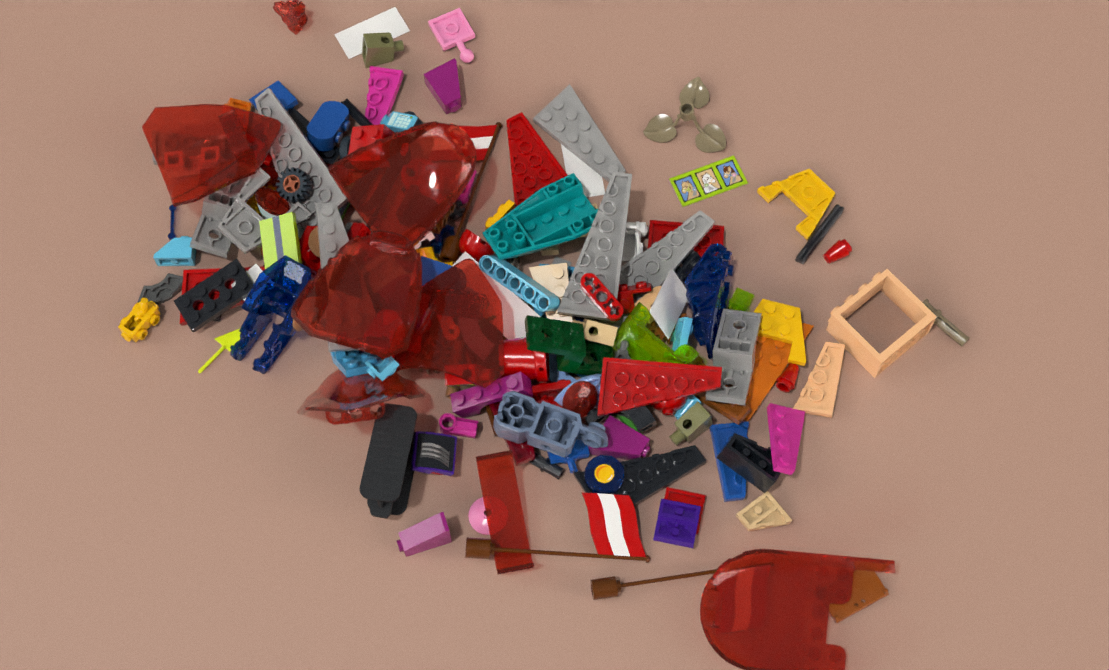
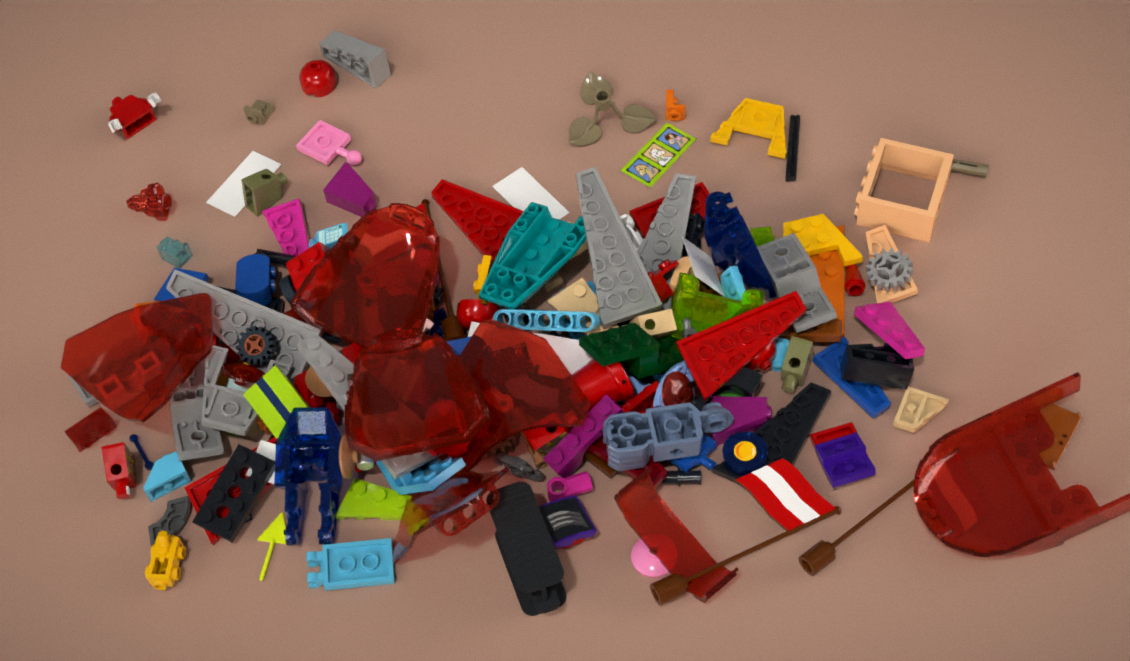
camera: 25 degrees left, 10 degrees down
(145, 184) = (90, 429): none -> clear red bracket
(146, 229) = (120, 468): none -> red torso
(268, 398) = (352, 565): none -> medium azure tile
(285, 67) = (174, 252): none -> clear light blue brick
(310, 355) = (371, 501): none -> lime wing
(383, 369) = (466, 462): medium azure bracket -> none
(424, 535) = (606, 605): slope -> none
(431, 389) = (519, 466): none -> dark grey piece
(574, 128) = (501, 170): light grey wing -> none
(614, 304) = (642, 297): red beam -> none
(743, 146) = (674, 110): none -> orange bracket
(825, 391) = (889, 270): none -> light grey gear
(837, 251) = (820, 152): red cone -> none

